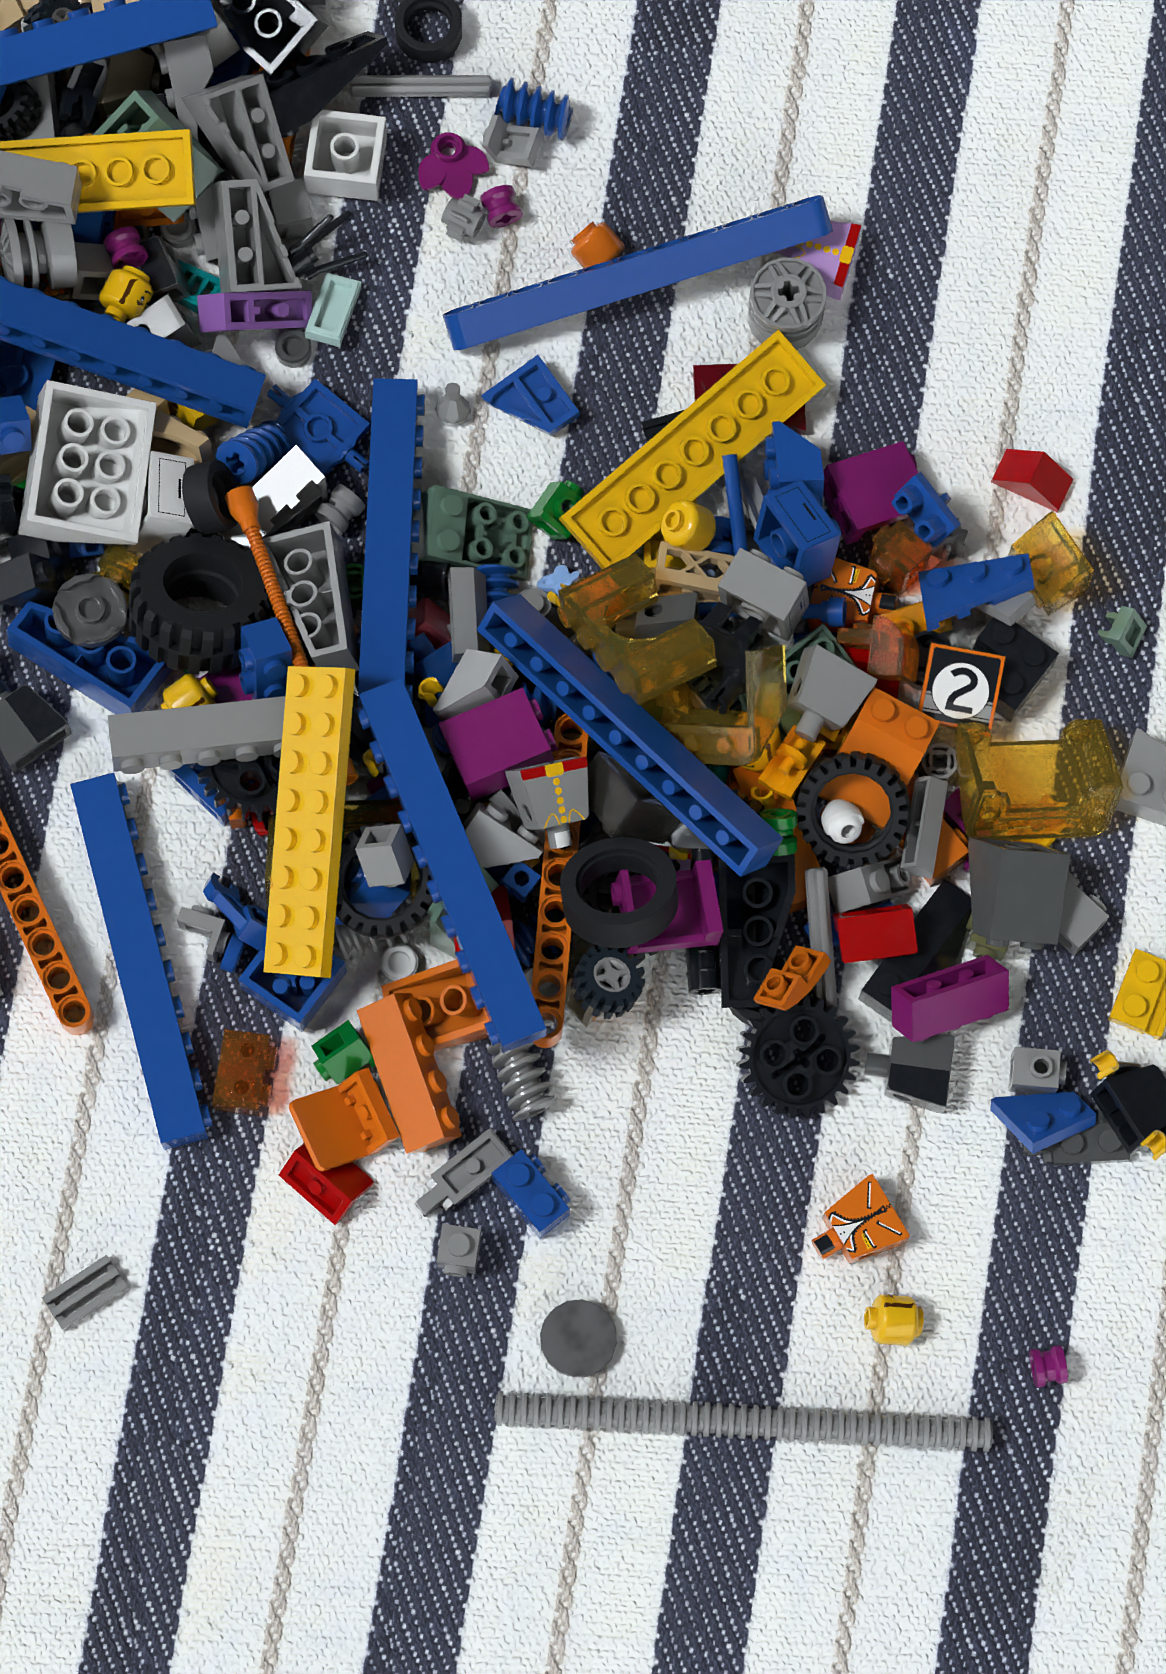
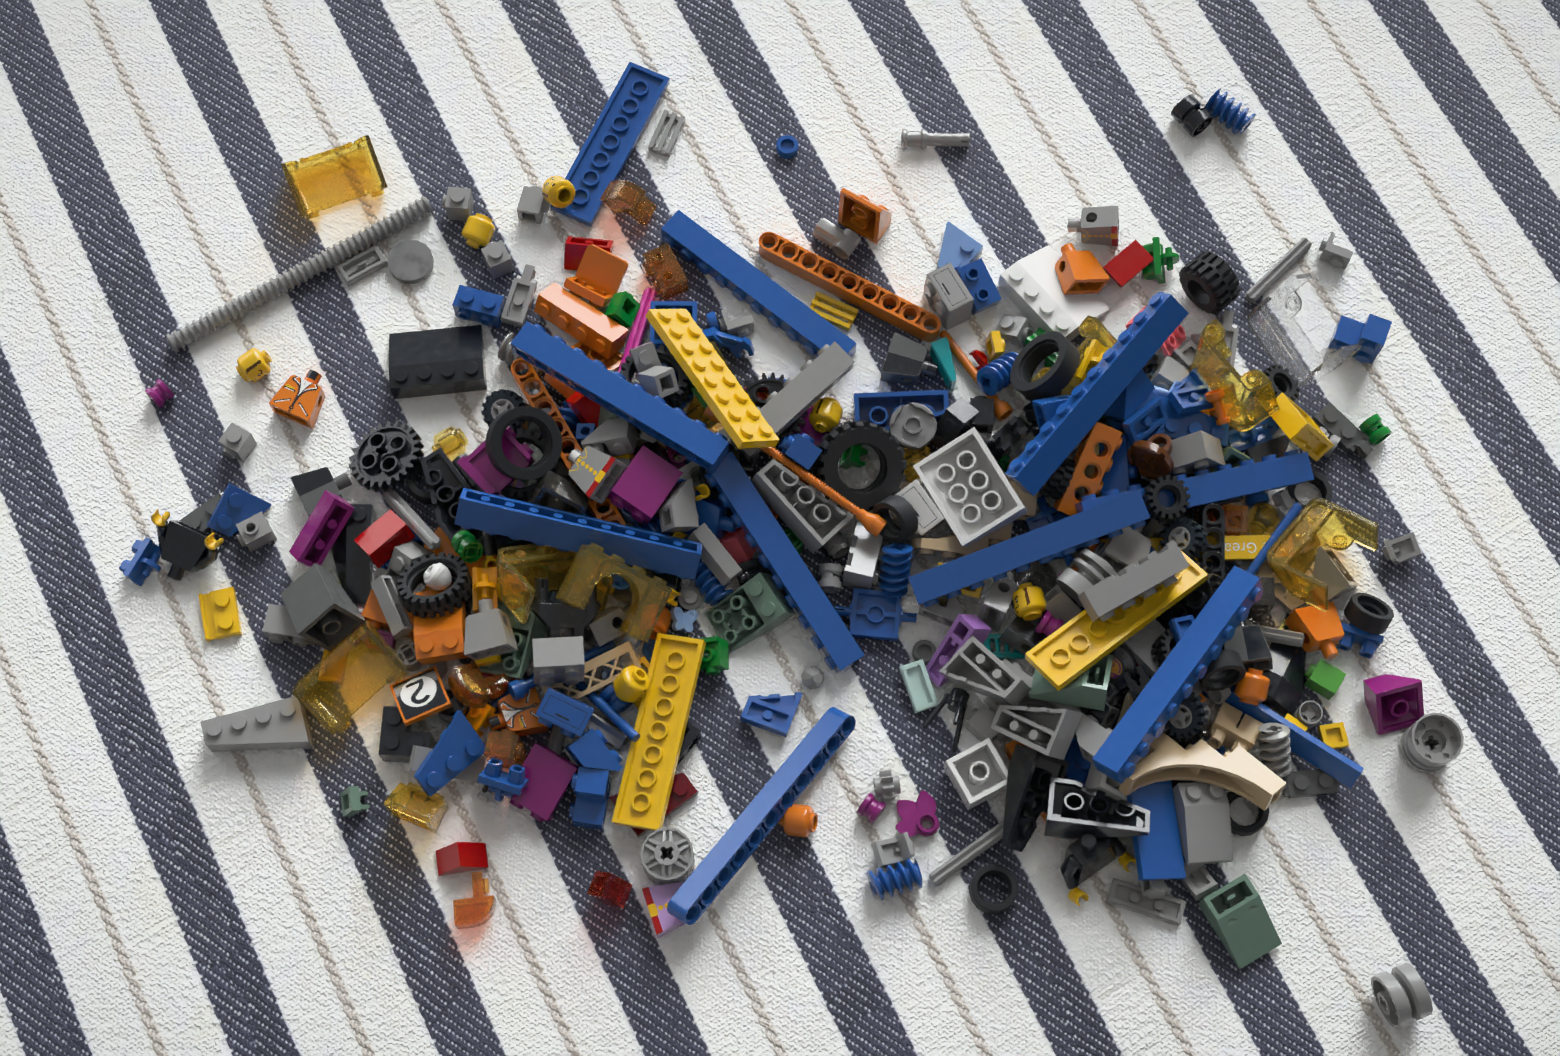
camera: 145 degrees right, 5 degrees down
(46, 839) = (836, 304): none -> yellow tile
(174, 1328) = (612, 140): none -> blue plate
(218, 1213) = (629, 198): none -> clear orange brick
(308, 1278) = (558, 191): none -> yellow head
(350, 1303) = (532, 205): none -> light grey brick
(352, 1000) = (640, 323): none -> dark pink axle
(376, 907) = (644, 357): none -> light grey bracket
(454, 1314) = (478, 230): none -> yellow head
(455, 1375) = (458, 203): none -> light grey brick
(599, 1547) = (335, 177): none -> clear yellow windscreen
(638, 1158) = (437, 362): none -> black slope
(681, 1382) = (364, 268): none -> light grey tile
(701, 1020) = (451, 441): none -> clear yellow head
(796, 979) = (410, 479): orange slope -> none
(835, 428) = (592, 797): none -> blue brick
(880, 315) = (609, 889): none -> clear red brick
(986, 1214) = (237, 443): none -> light grey brick
(1055, 402) = (475, 910): none -> clear orange brick

